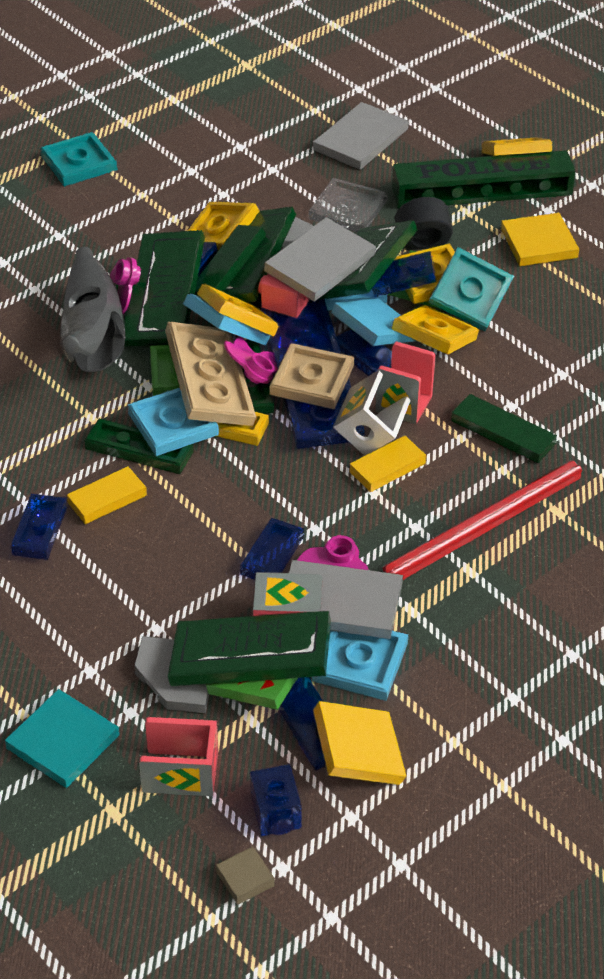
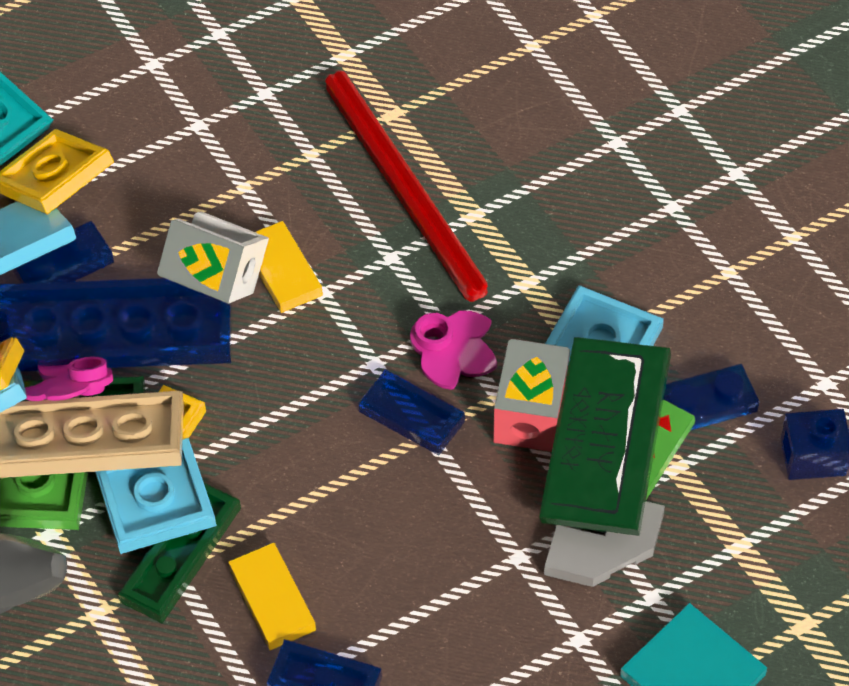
camera: 80 degrees left, 10 degrees up
(180, 775) = (776, 512): piece -> none
(312, 376) = (116, 316): tan tile -> none
(356, 598) = (519, 310): light grey tile -> none
(359, 743) = (745, 351): yellow tile -> none
(409, 376) = (143, 210): piece -> none
(504, 428) = (244, 137): dark green tile -> none

